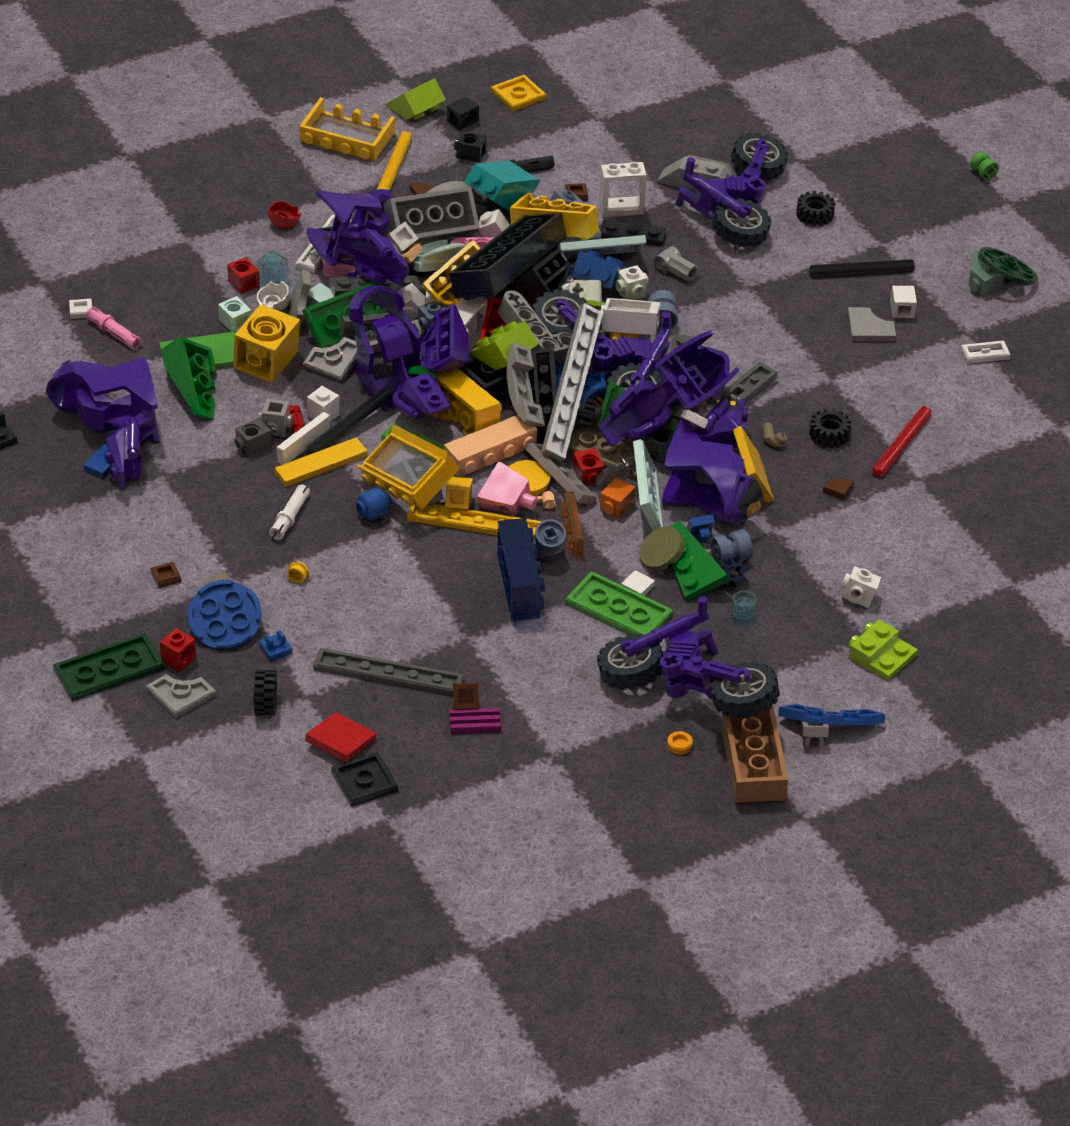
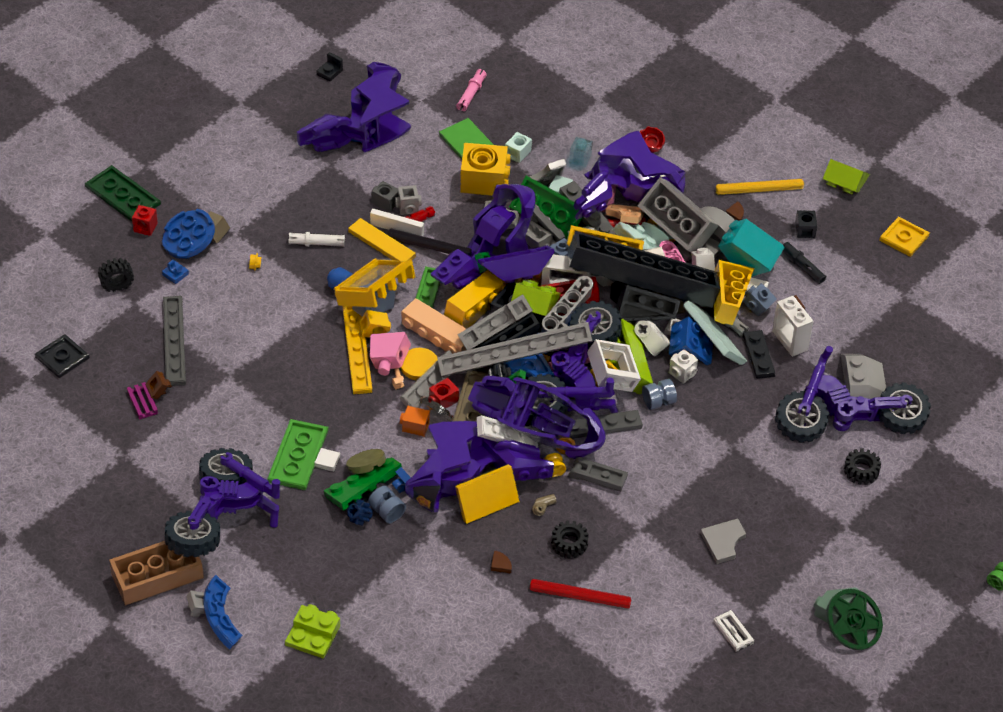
camera: 70 degrees right, 5 degrees up
(79, 308) = (488, 66): white tile -> none
(165, 574) = (225, 195): reddish brown tile -> none
(180, 696) = (109, 237): light grey tile -> none
(192, 371) = (435, 143): green wedge -> none
(243, 275) = (565, 137): red brick -> none
(274, 296) = (546, 158): white hair -> none
(323, 401) = (437, 223): white brick -> none
(340, 737) = (95, 330): red tile -> none
(344, 133) = (780, 145): yellow window -> none
(402, 237) = (636, 203): white plate -> none
(463, 113) = (848, 207): black brick -> none
(520, 569) = (298, 378): clear blue brick -> none
(549, 539) = (341, 389): sand blue wheel -> none
(572, 523) = (373, 401): clear orange plate -> none
(648, 485) = (413, 437): light aqua tile -> none
(672, 261) = (728, 390): light grey piece -> none
(680, 743) = (159, 525): light orange tile -> none
(743, 606) = (323, 528): clear light blue wheel -> none
(860, 586) = (375, 598): white brick -> none
(861, 268) = (800, 518): black axle -> none
(903, 302) = (764, 554): white brick -> none

